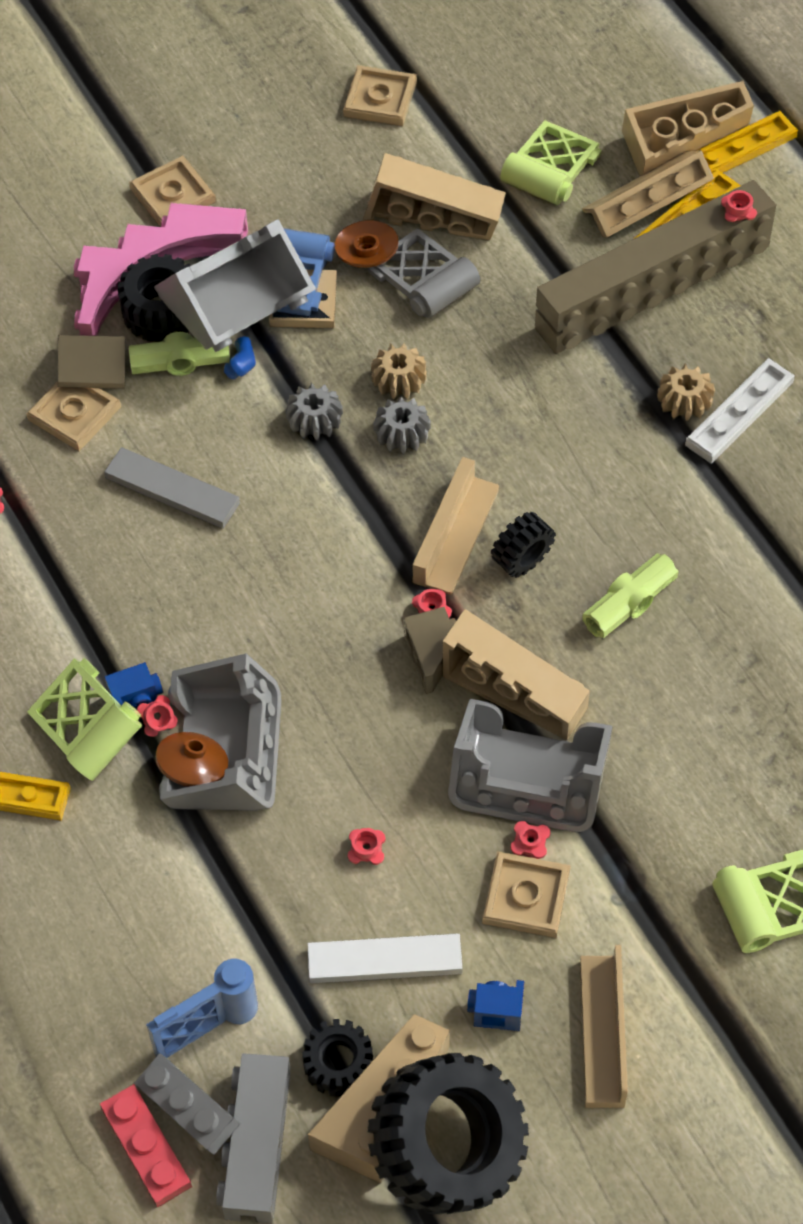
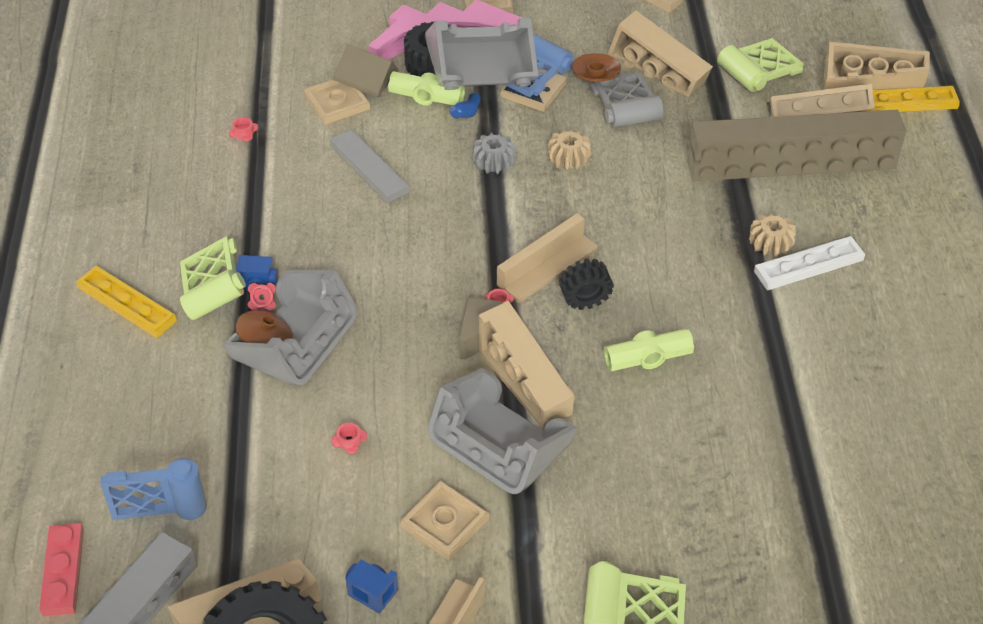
camera: 25 degrees right, 10 degrees down
(187, 1103) = (103, 550): light grey plate -> none
(330, 1036) = (228, 554): black tyre -> none
(384, 958) = (313, 518): white tile -> none
(402, 425) = (550, 182): light grey gear -> none
(530, 849) = (471, 490): coral plate -> none
(738, 206) = (874, 119): coral plate -> none

